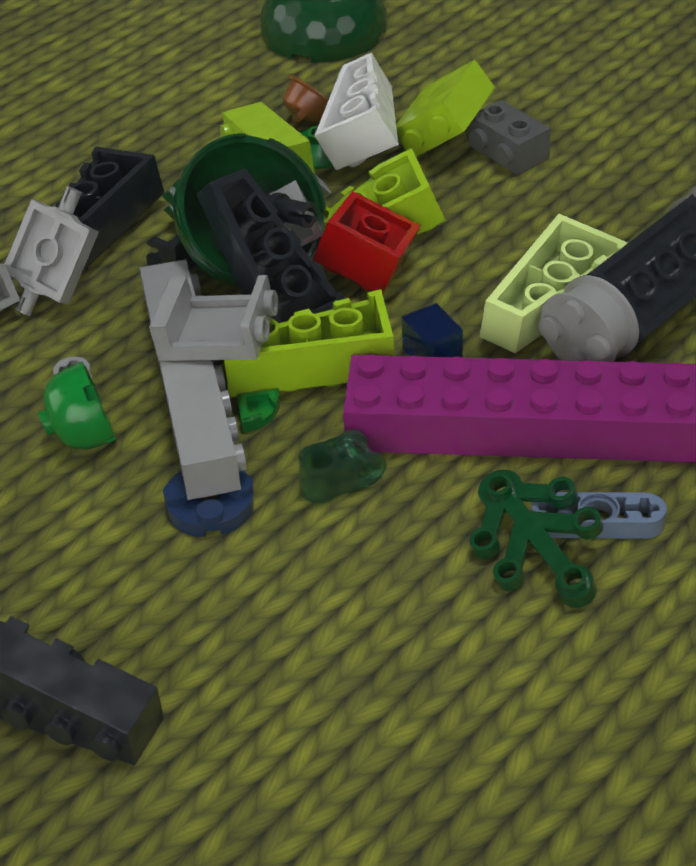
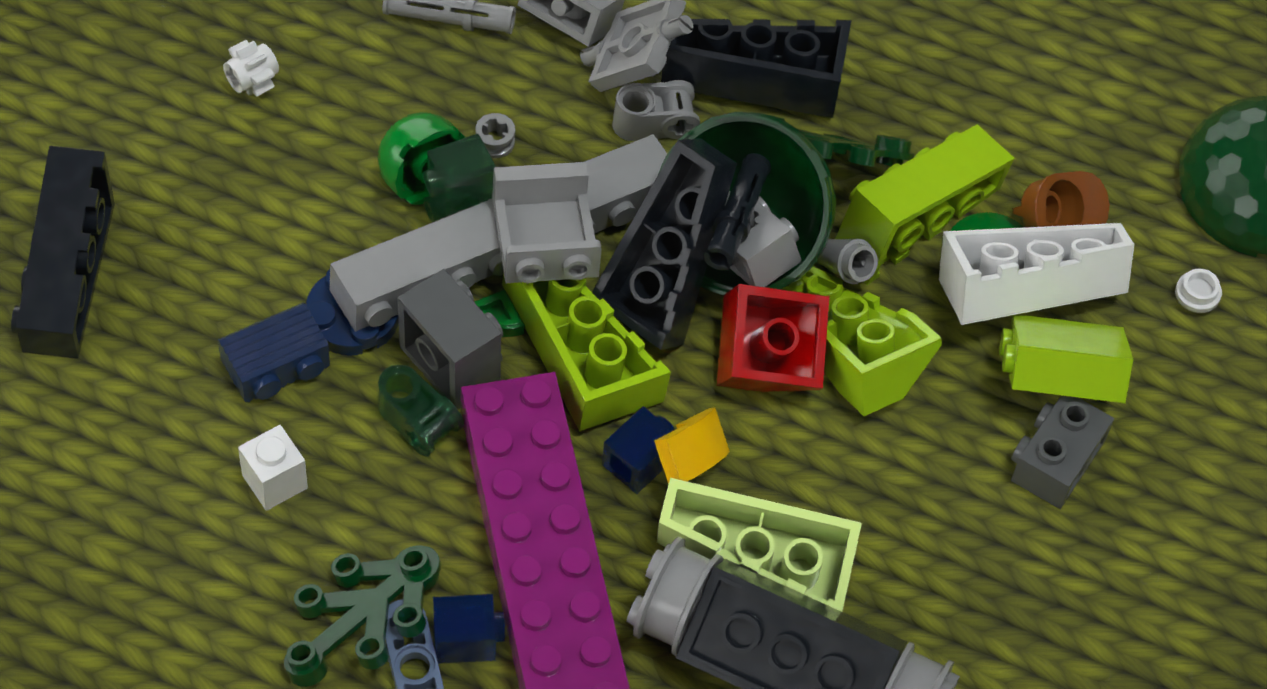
camera: 65 degrees right, 15 degrees up
(107, 278) = (654, 110): none -> light grey piece
(129, 384) = (457, 177): none -> clear green brick
(237, 550) = (274, 353): none -> dark blue brick
(284, 414) = (449, 335): none -> dark grey brick
(365, 567) = (273, 467): none -> white brick
(400, 62) = (1198, 290): none -> white plate
(448, 297) = (693, 446): none -> yellow slope
(574, 458) = (466, 628): none -> clear blue brick

